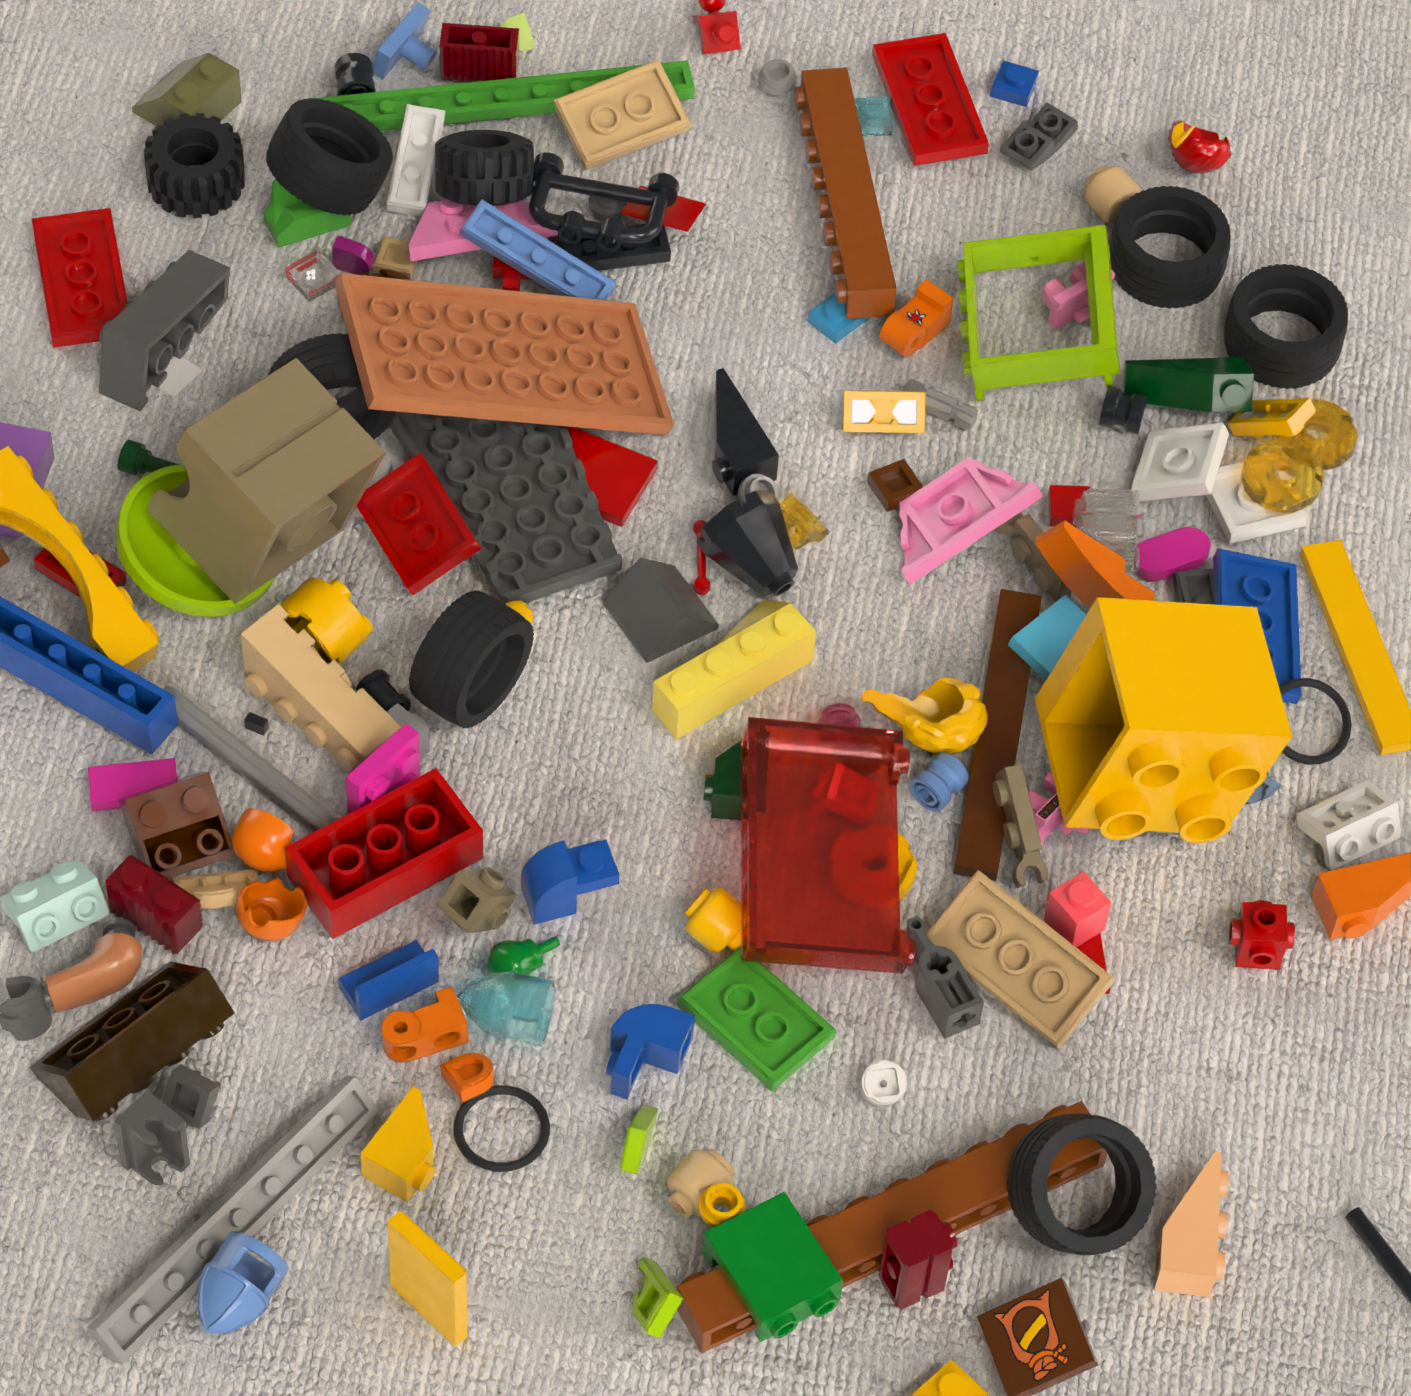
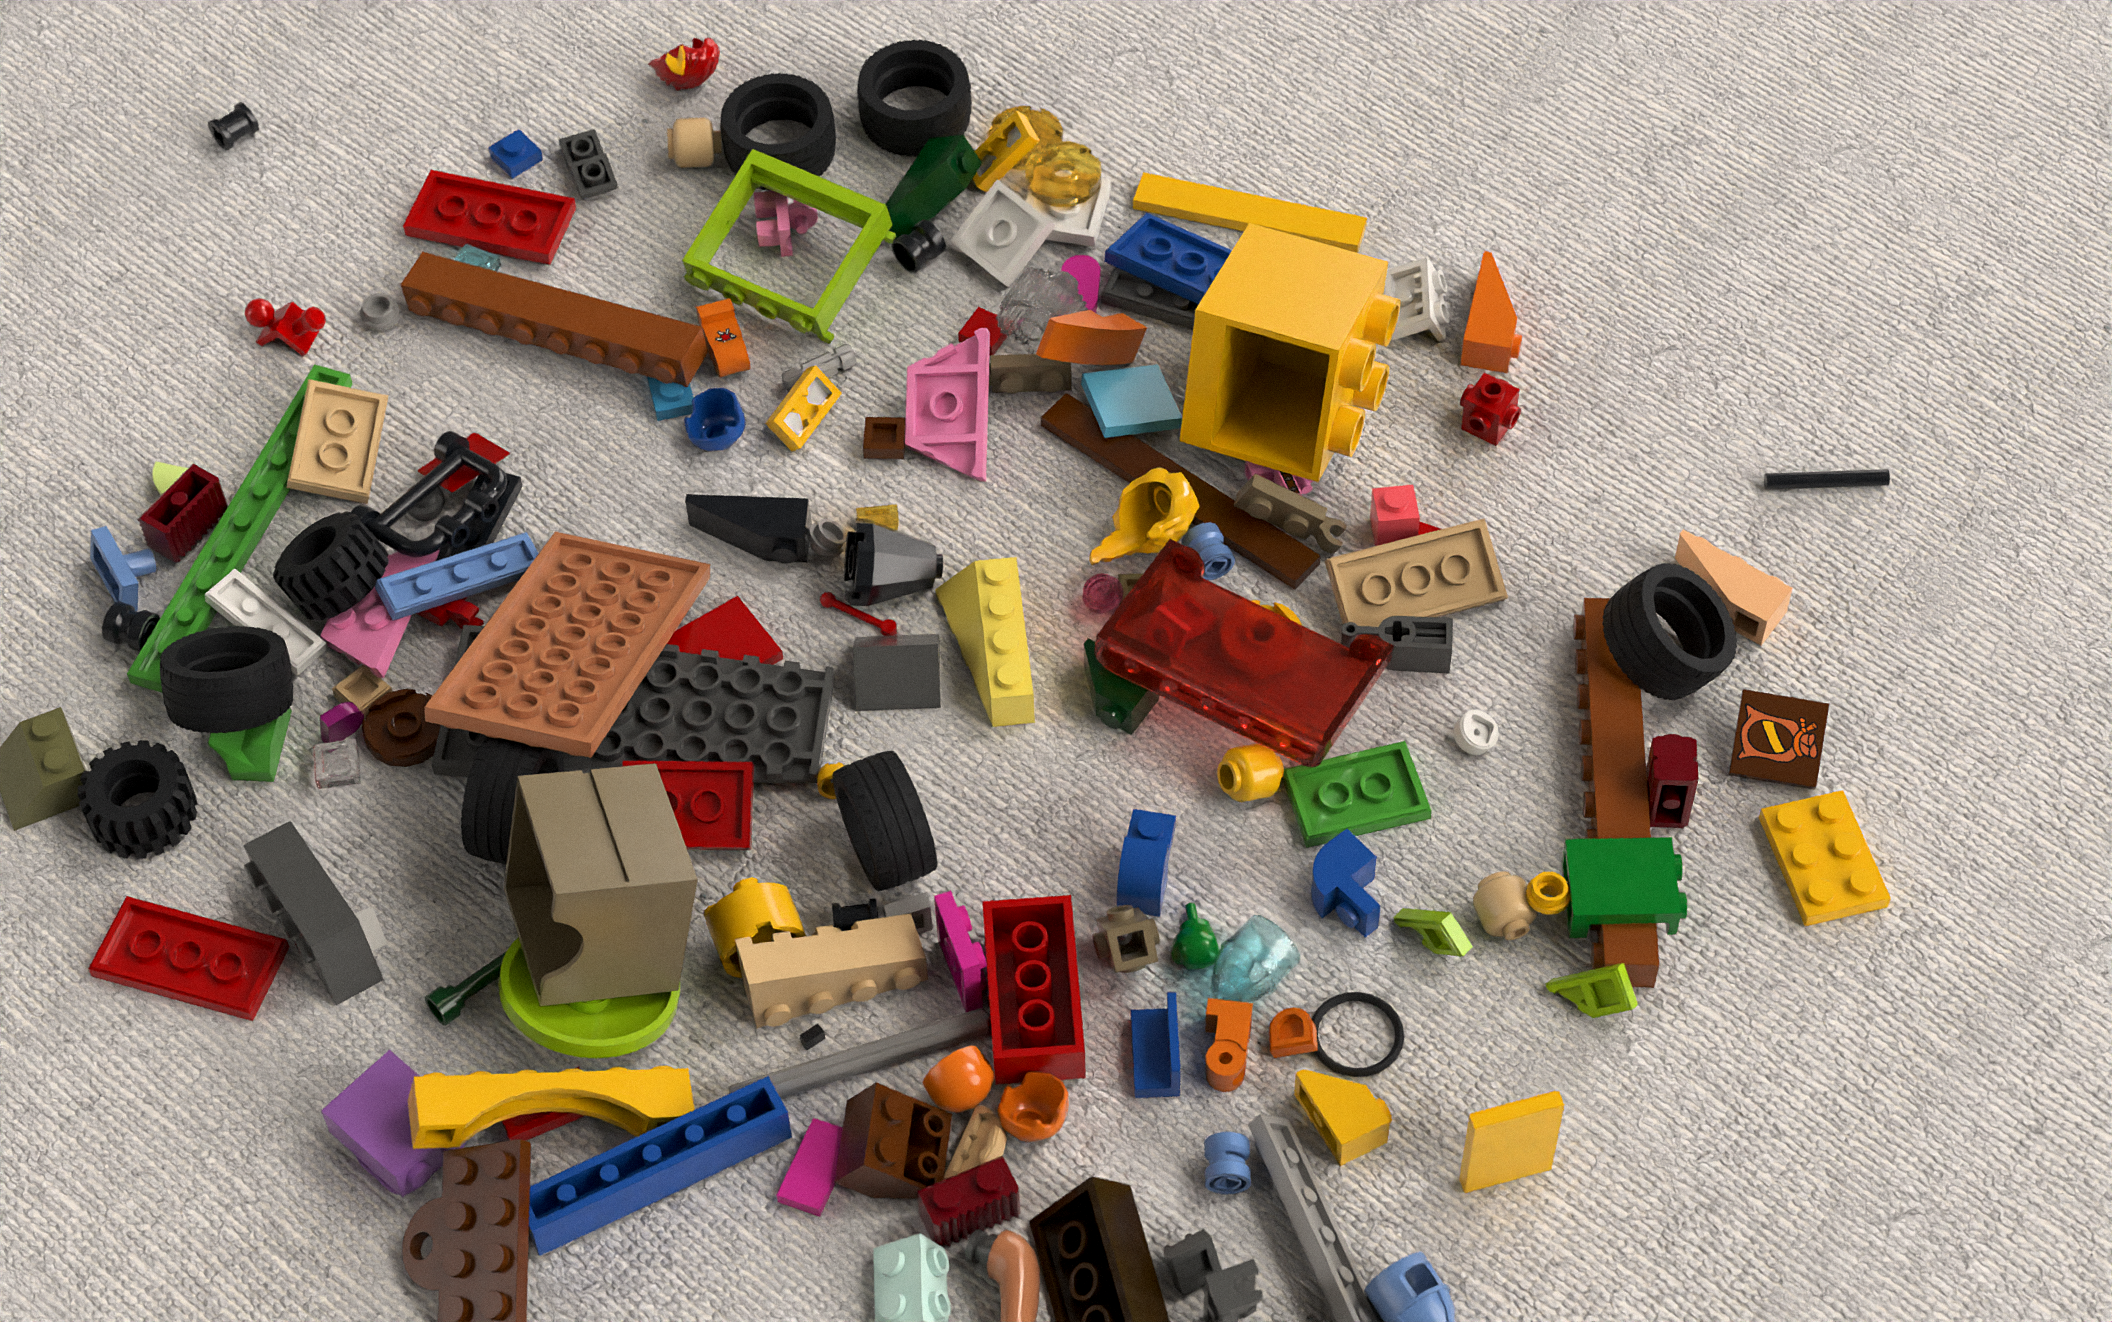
camera: 55 degrees left, 0 degrees up
(303, 1079) = (1227, 1163): none -> medium blue wheel
(823, 357) = (715, 420): none -> blue hair

